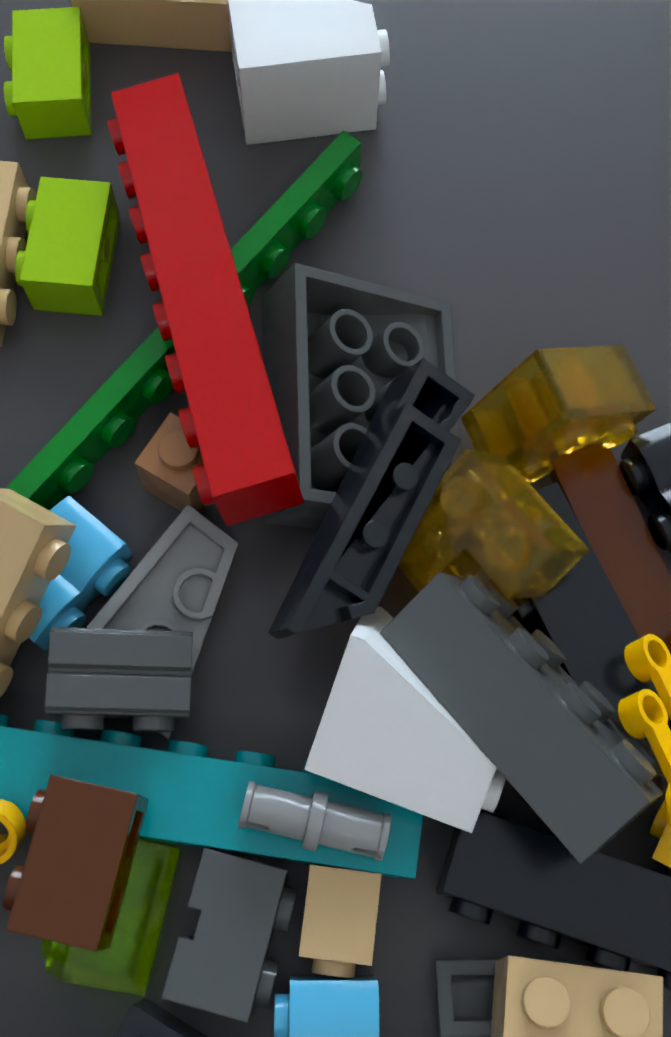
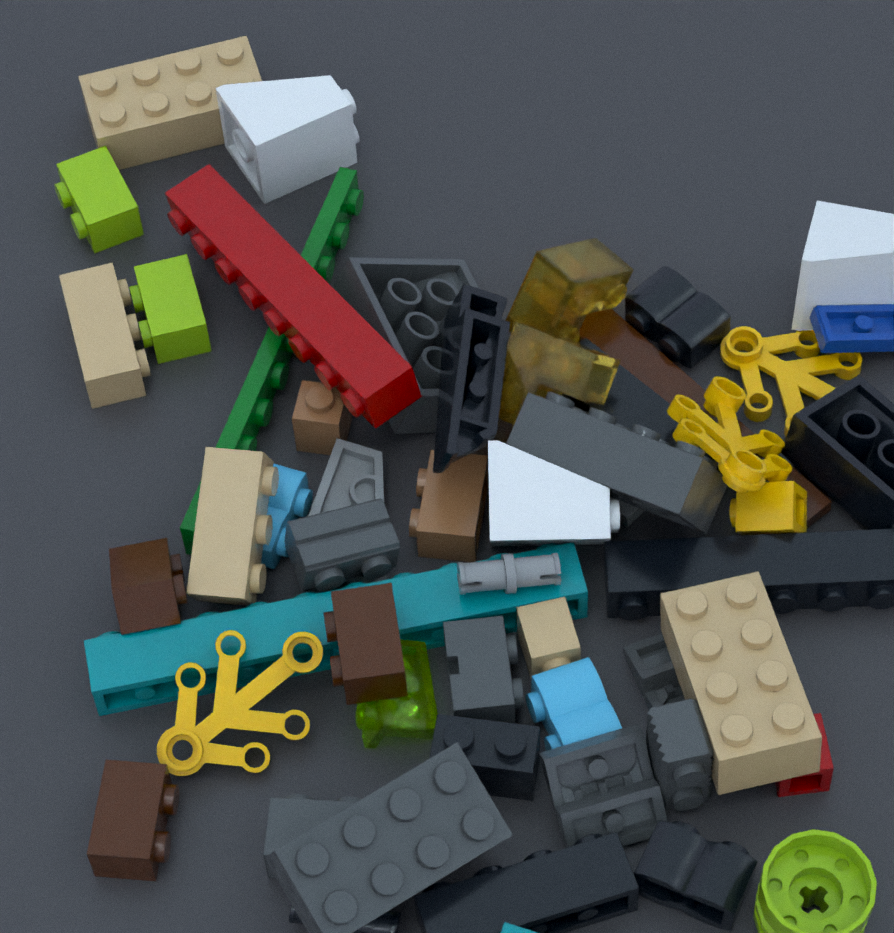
camera: 15 degrees left, 15 degrees down
(287, 675) = (450, 509): none -> medium nougat brick

